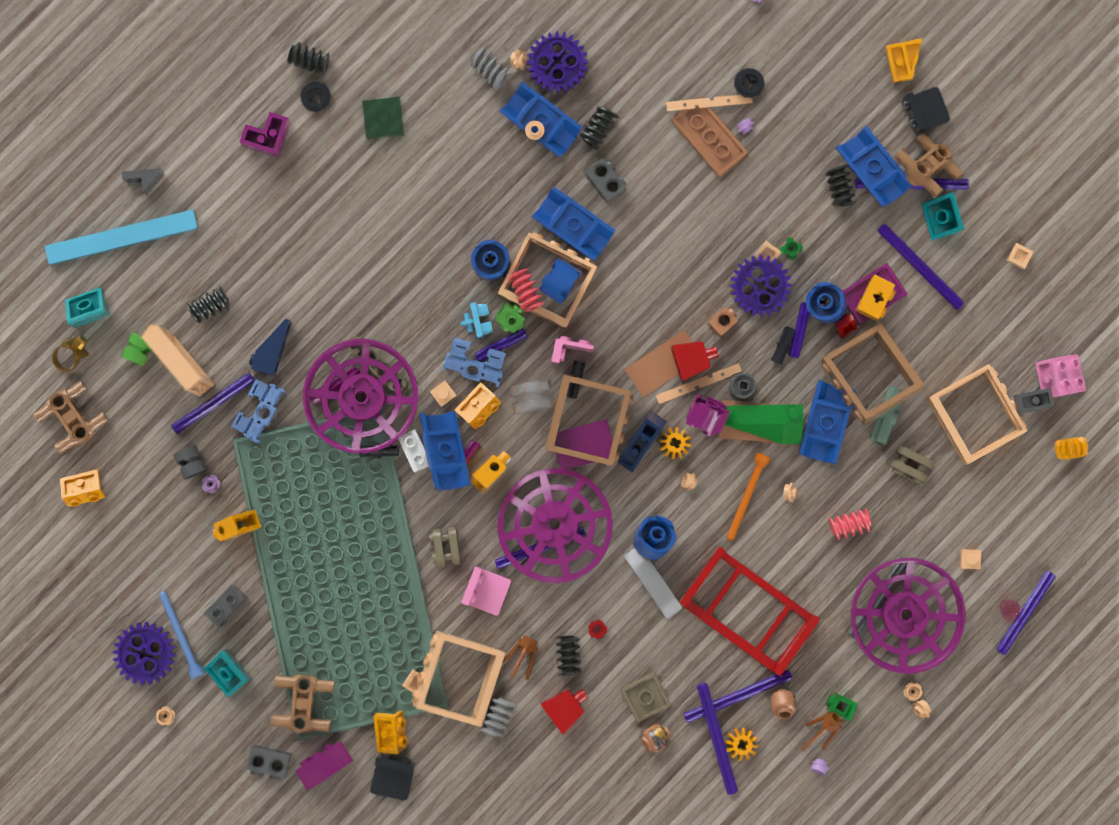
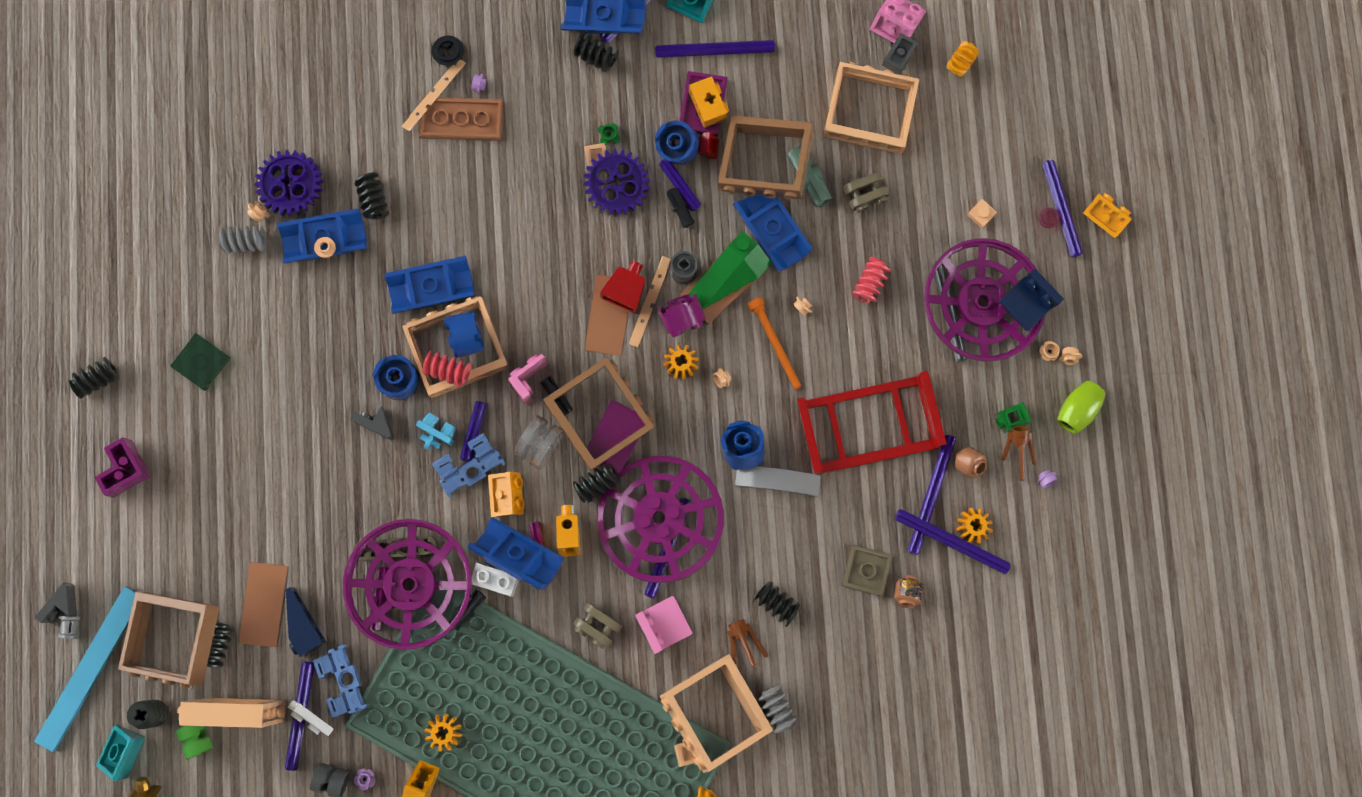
camera: 50 degrees left, 5 degrees down
(120, 301) = (147, 714): none -> pearl dark grey piece
(134, 198) = (68, 627): none -> light grey bush
(168, 248) = (137, 631): none -> medium nougat window
(217, 420) = (315, 724): none -> white plate
(262, 311) = (263, 604): none -> nougat sticker
(285, 501) = (437, 739): none -> light orange gear
(318, 88) = (126, 392): black gear -> none
(443, 393) = (469, 514): light nougat plate -> none
(448, 279) = (379, 425): none -> dark grey slope
(509, 311) = (450, 402): bright green brick -> none
(540, 462) = (597, 483): none -> pearl dark grey piece
(565, 708) = (818, 645): red torso -> none
(597, 634) = (776, 555): red plate -> none
(601, 183) = (418, 234): dark grey brick -> none
(642, 441) = (655, 387): dark blue slope -> none
(717, 327) = (617, 246): nougat brick -> none
(891, 747) = (1081, 407): none -> lime piece
(934, 647) = (1030, 299): none -> dark blue bracket
(1050, 649) = (1107, 214): none -> light orange bracket

